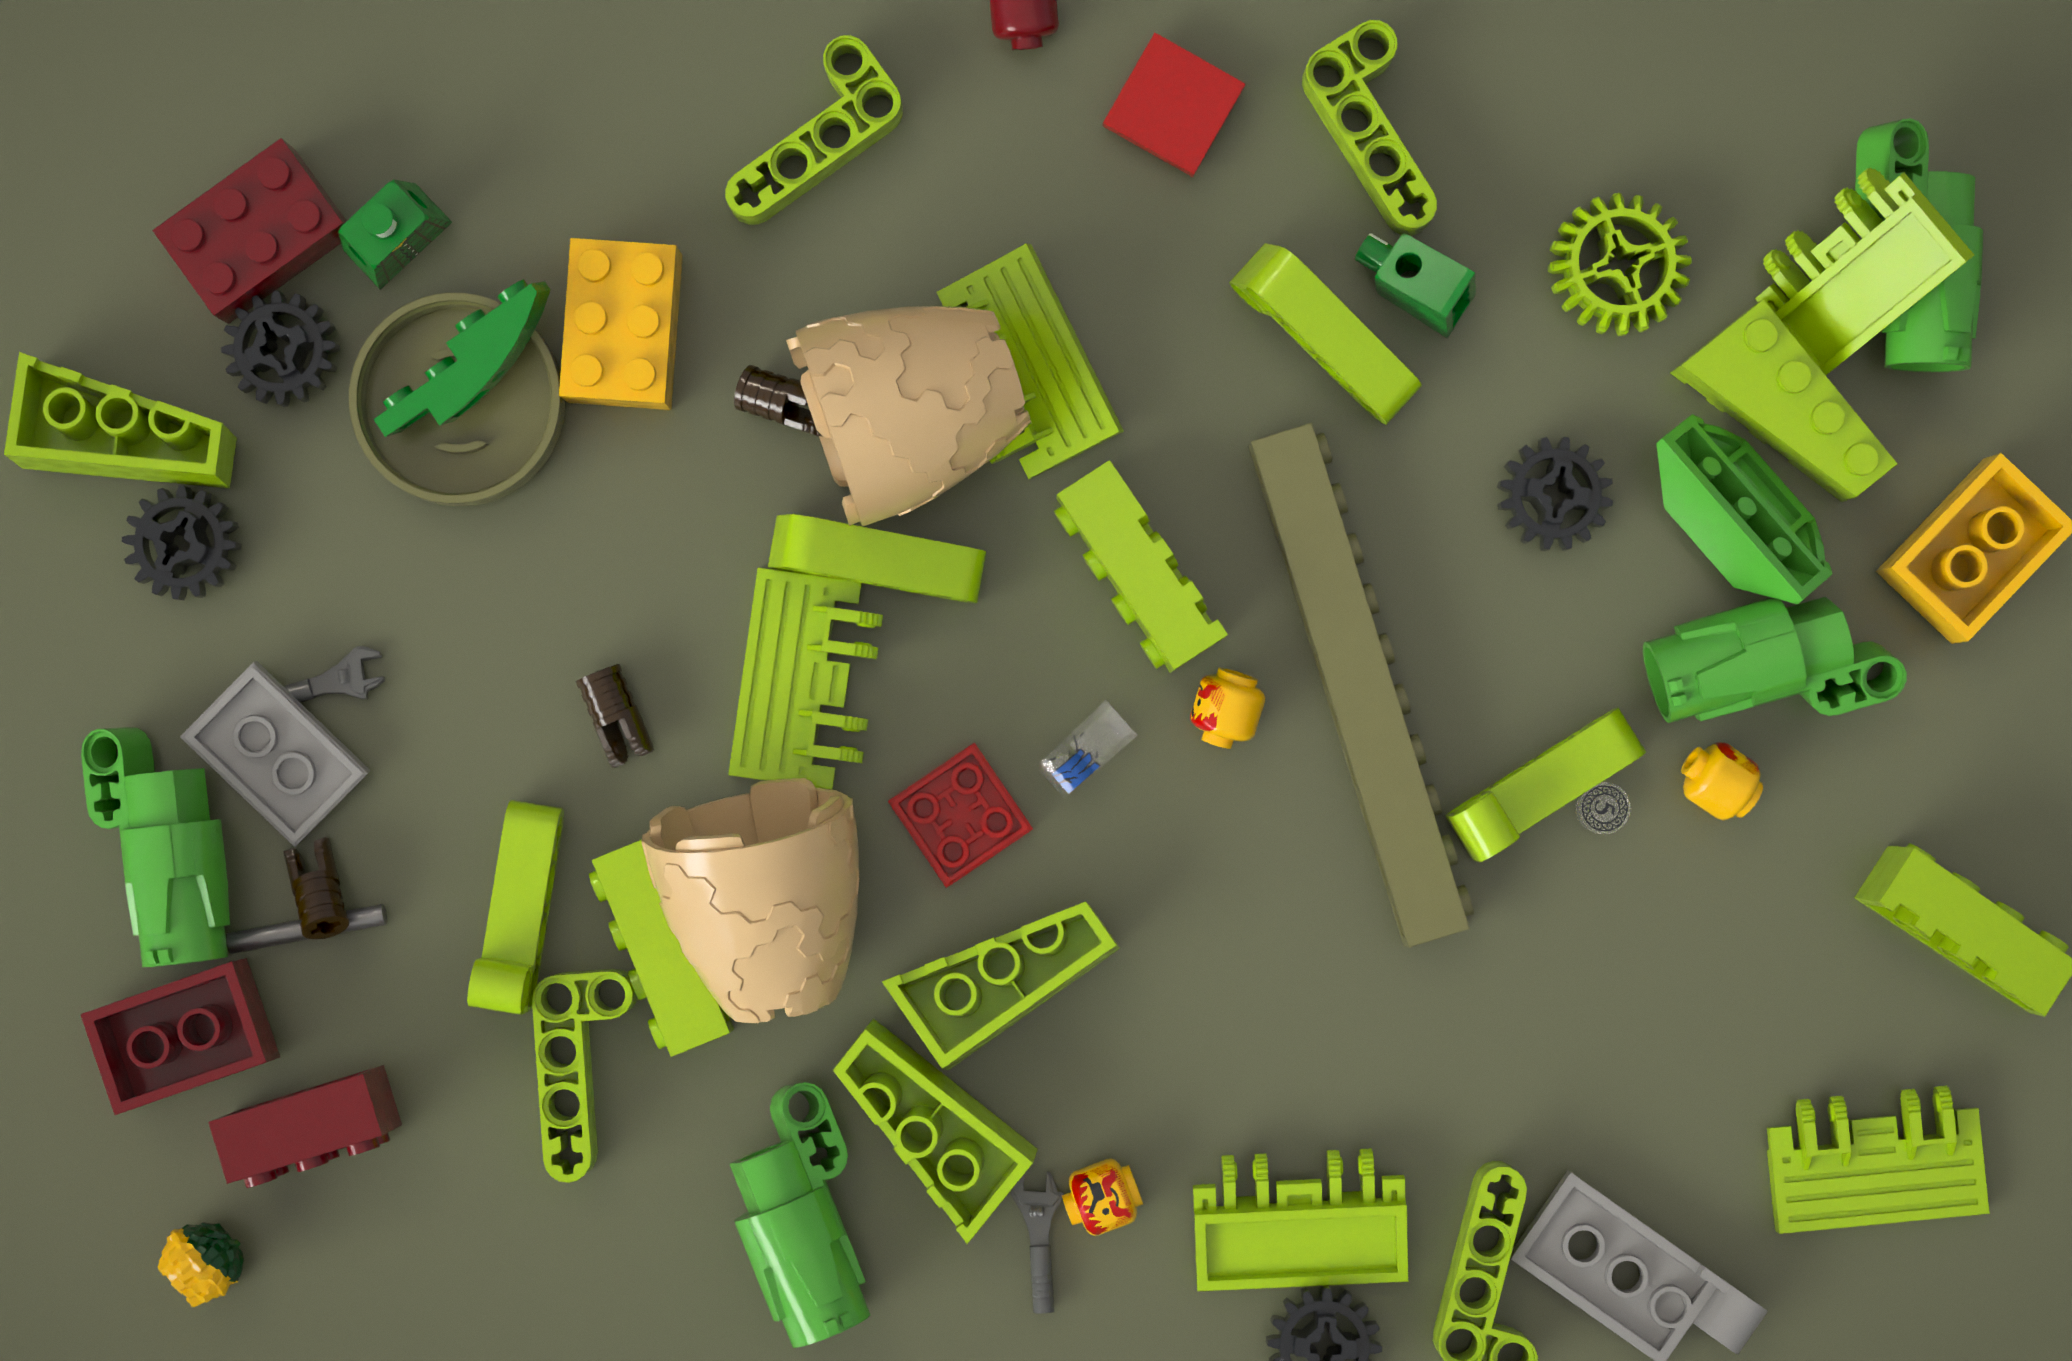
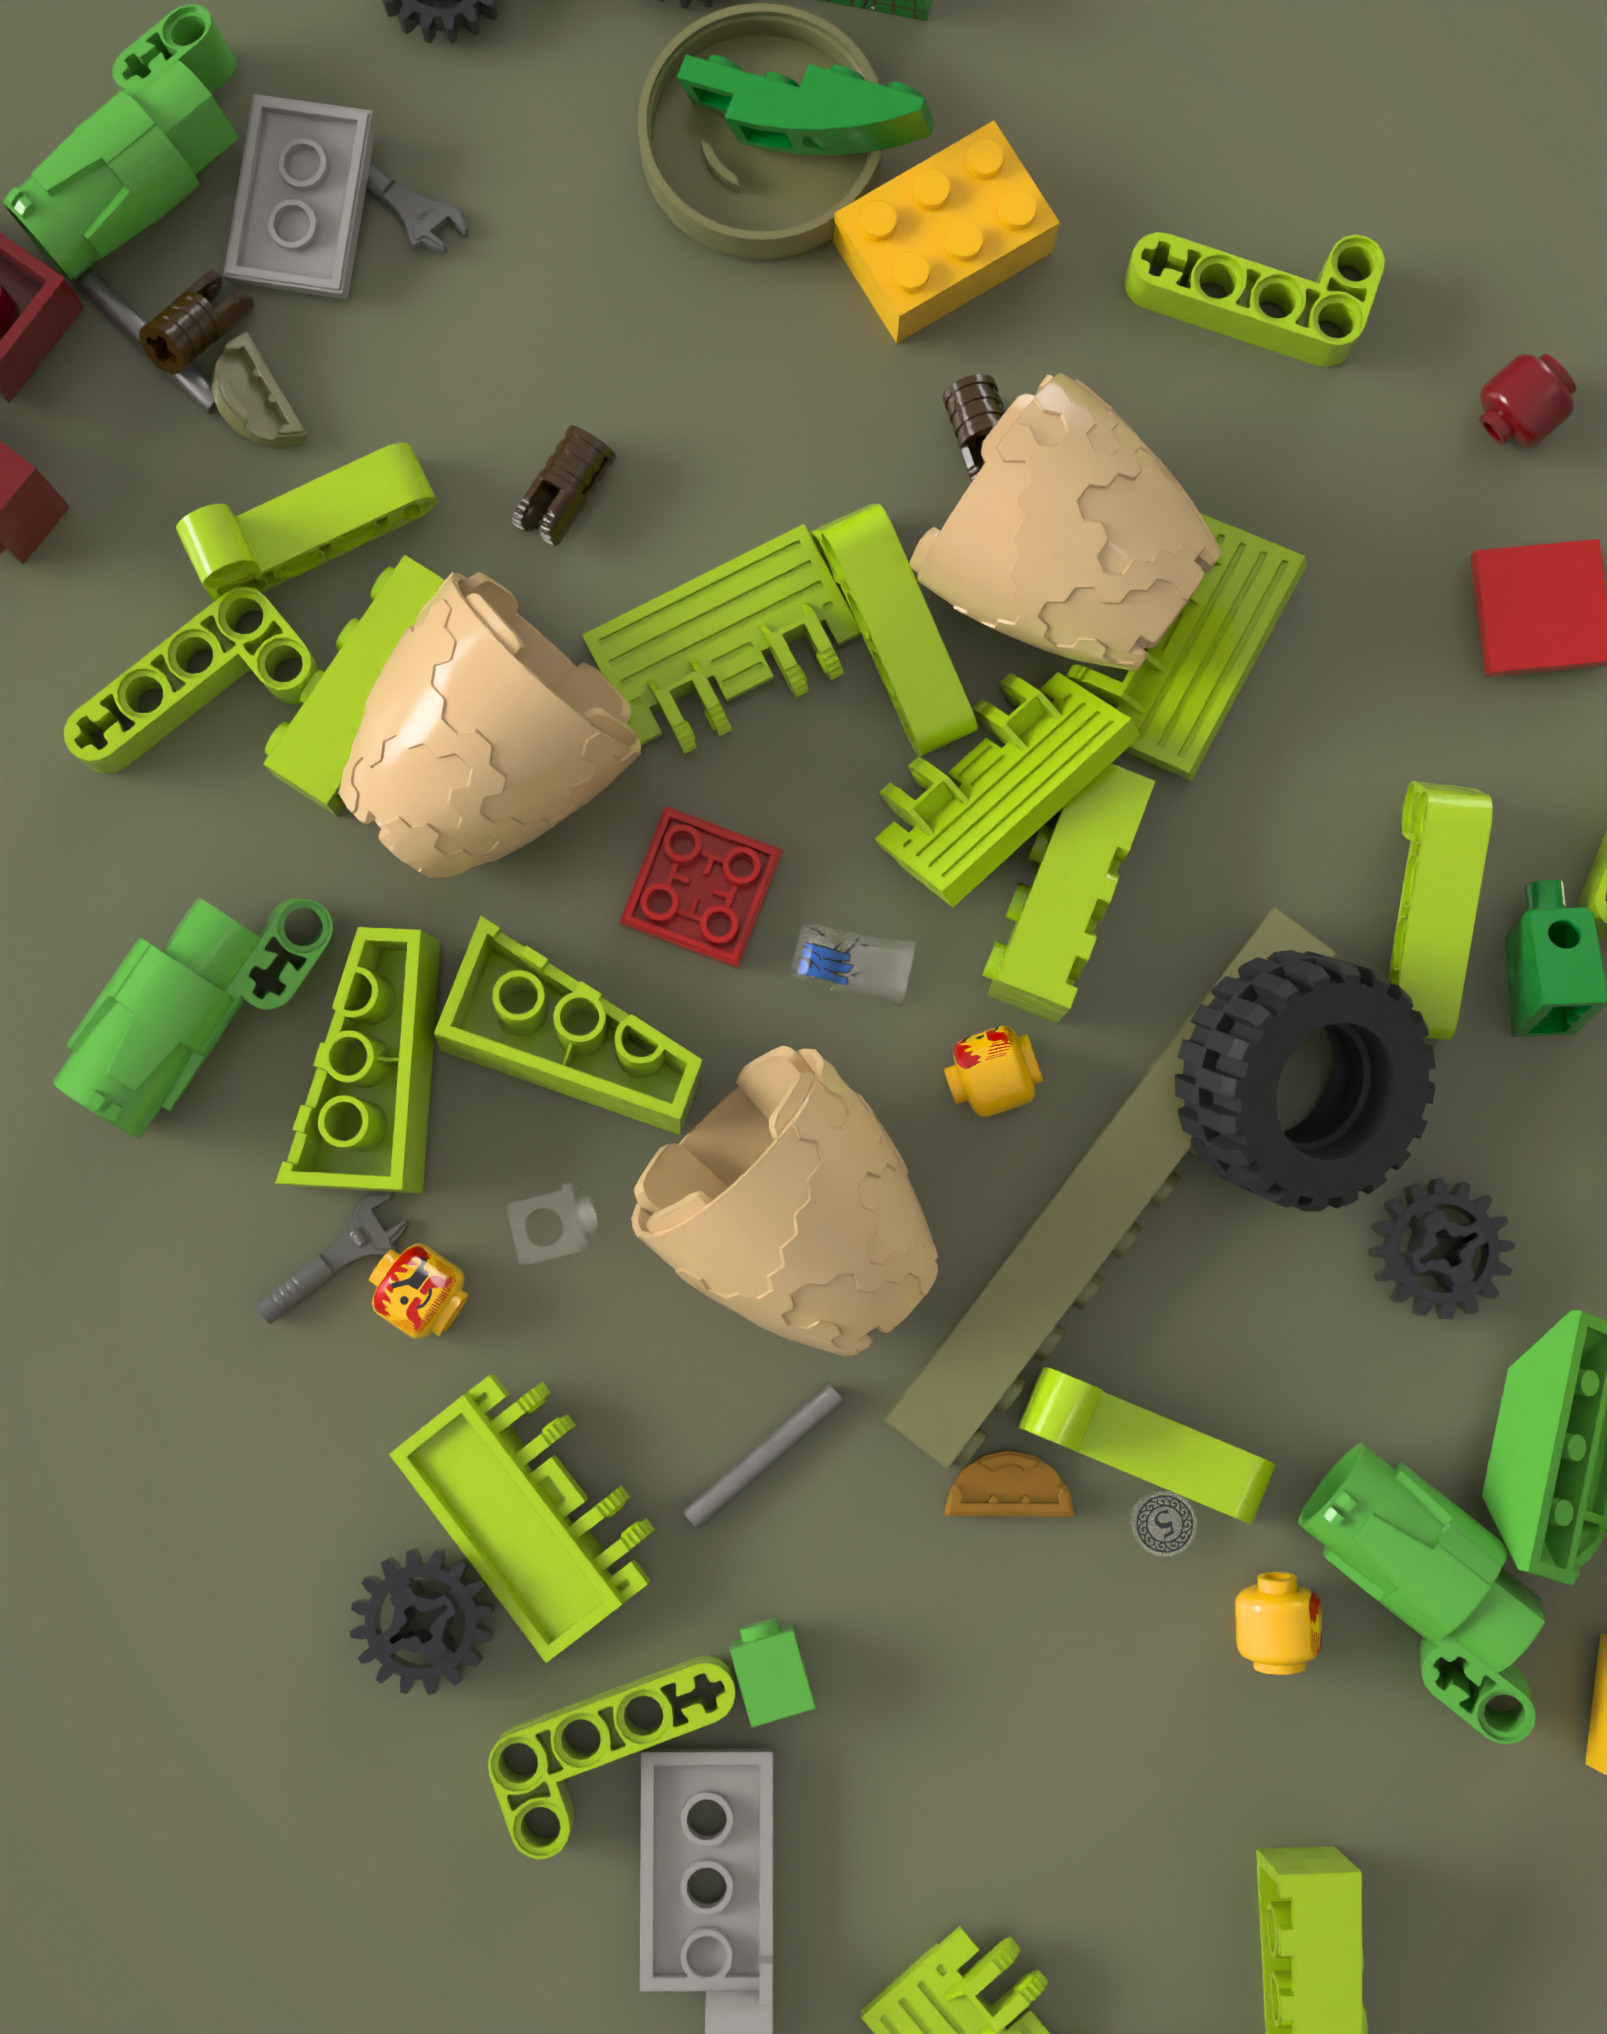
camera: 50 degrees right, 5 degrees down
(396, 886) = (252, 398): none -> olive tile
(1043, 563) = (1005, 794): none -> lime hinge
(1126, 1056) = (576, 1216): none -> clear bracket
(1226, 912) = (792, 1208): none -> tan piece
(1373, 1042) = (763, 1456): none -> flat silver bar
(1437, 498) = (1372, 1093): none -> black tyre
(1507, 893) = (1008, 1486): none -> pearl gold tile
(1518, 1137) = (771, 1672): none -> bright green brick

